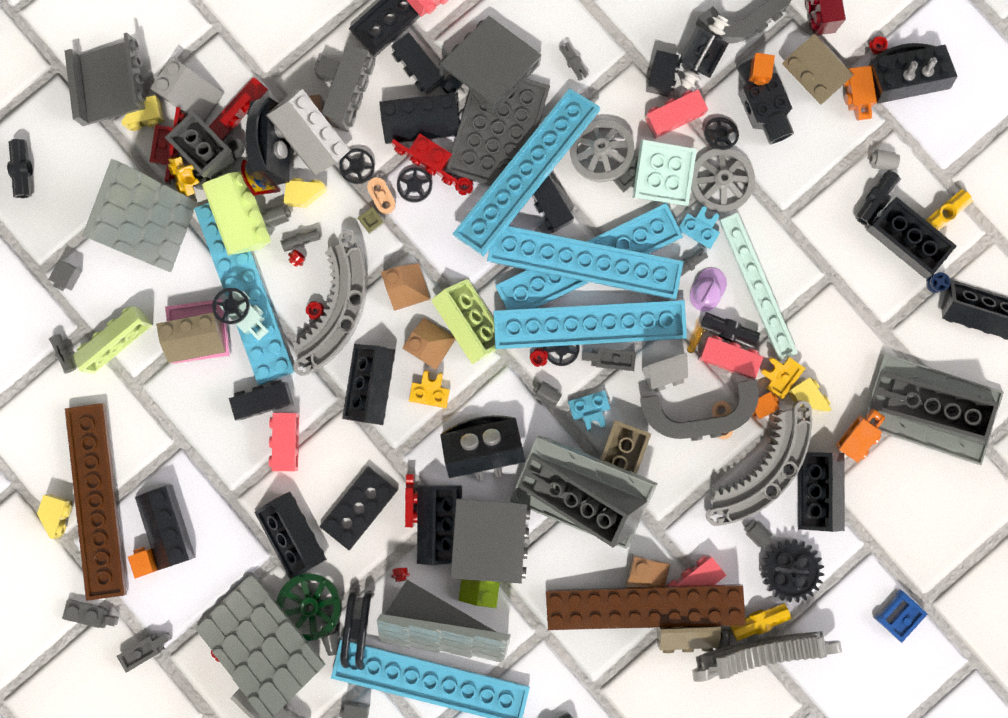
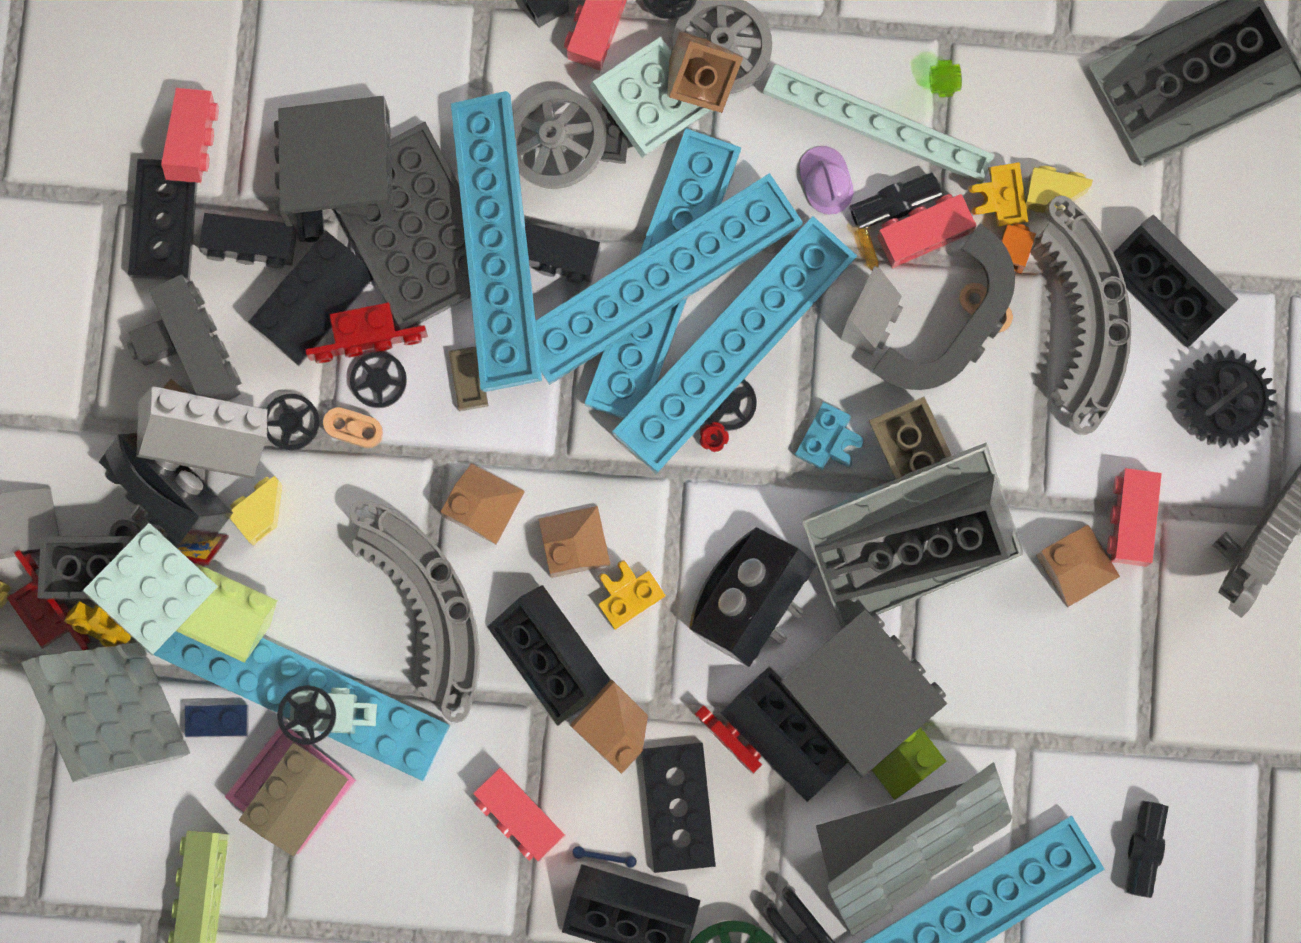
camera: 50 degrees left, 5 degrees down
(64, 275) = (68, 877): dark grey brick -> none
(195, 269) = (217, 721): none -> dark blue plate
(215, 181) = (150, 589): none -> light aqua plate
(237, 108) = (85, 485): red bracket -> none
(261, 400) = (444, 794): black brick -> none
(276, 215) = (253, 566): dark grey brick -> none
(296, 258) = (324, 593): red plate -> none
(296, 484) = (579, 852): none -> dark blue hinge
(300, 240) = (308, 568): dark grey pin -> none
(314, 305) = (396, 630): red plate -> none
(363, 444) = (613, 726): none -> medium nougat slope
(370, 220) = (368, 467): olive plate -> none
(400, 574) = (800, 834): red plate -> none
(452, 222) = (466, 379): none -> dark tan tile
(464, 181) = (442, 333): red plate -> none
(467, 319) = (591, 472): yellowish green slope -> none
(547, 393) = (763, 468): dark grey brick -> none
(573, 61) = (424, 70): dark grey pin -> none
(611, 359) = (796, 360): dark grey hinge -> none
(645, 607) = (1108, 596): reddish brown plate -> none
(688, 638) = (1188, 583): dark tan slope -> none
(690, 262) = (778, 162): dark grey pin -> none
(699, 184) = (701, 72): none -> medium nougat slope
(700, 228) = (750, 119): medium azure plate -> none
(758, 533) = (1149, 394): dark grey brick -> none
(761, 621) = (1249, 489): yellow piece -> none
(810, 295) = (945, 78): none -> clear neon green gear
(861, 436) = (1153, 177): orange brick -> none

